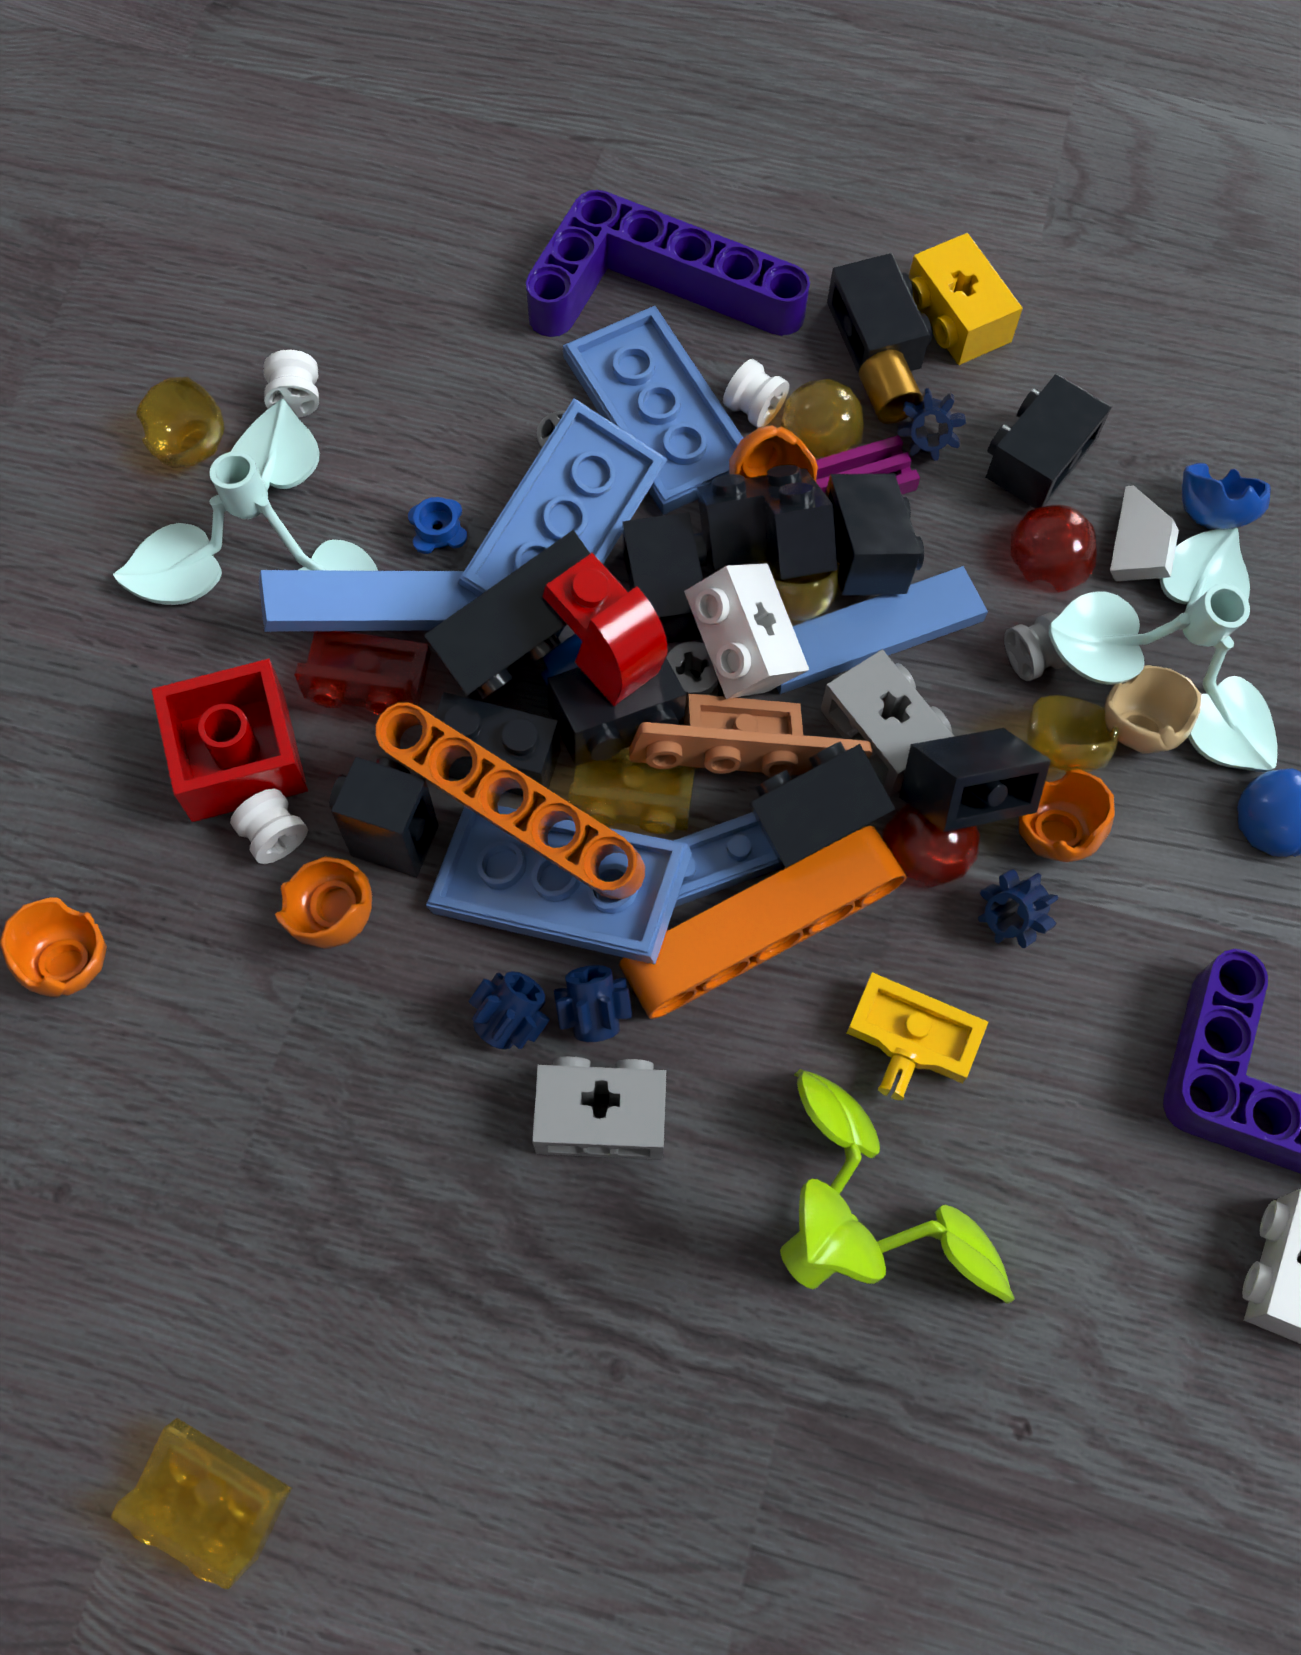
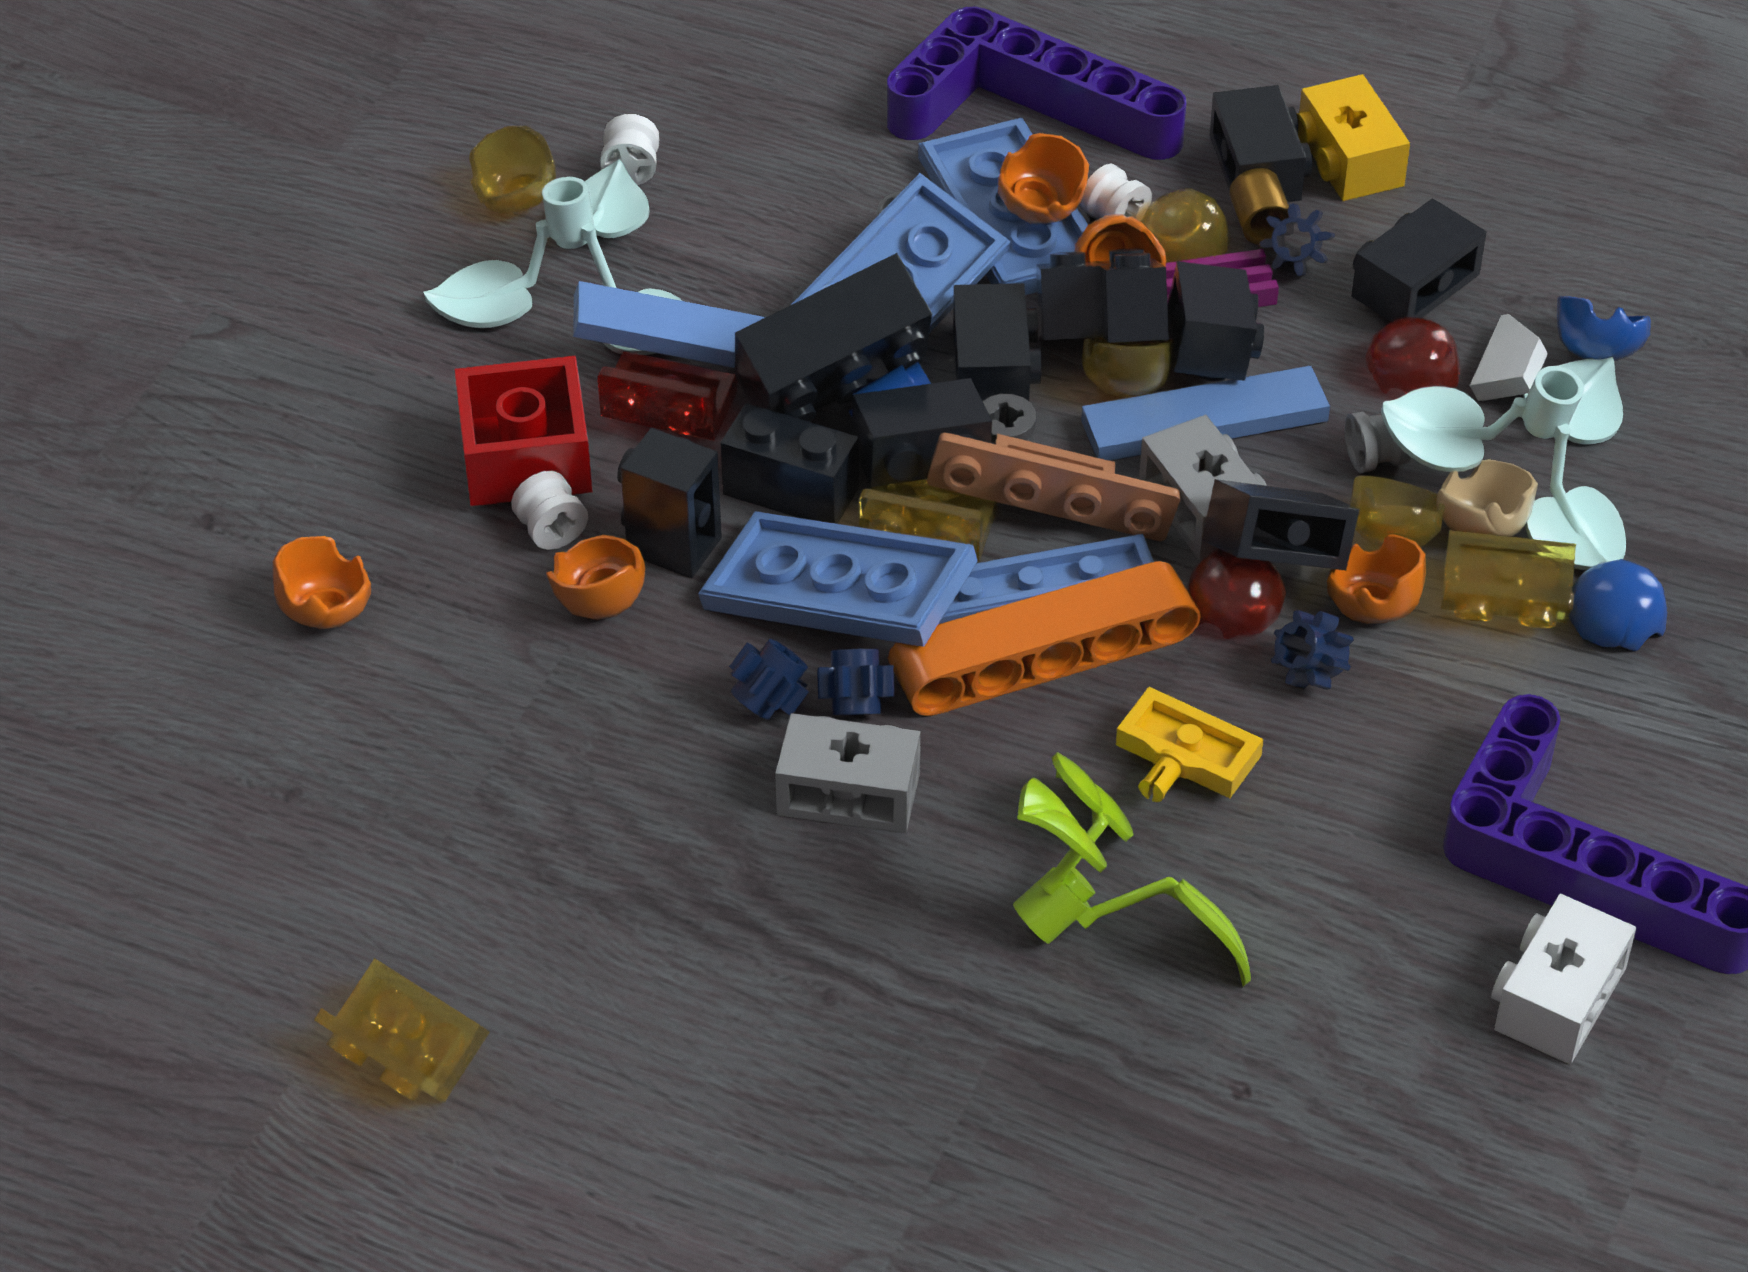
camera: 10 degrees right, 20 degrees down
(434, 512) = (761, 282): blue plate -> none
(489, 780) = (771, 460): orange beam -> none
(617, 628) = (929, 341): red brick -> none
(690, 387) = (1043, 179): none -> orange hair
(746, 630) = (1065, 382): white brick -> none
(820, 804) = (1116, 526): black brick -> none
(1183, 796) = (1508, 578): none -> clear yellow bracket

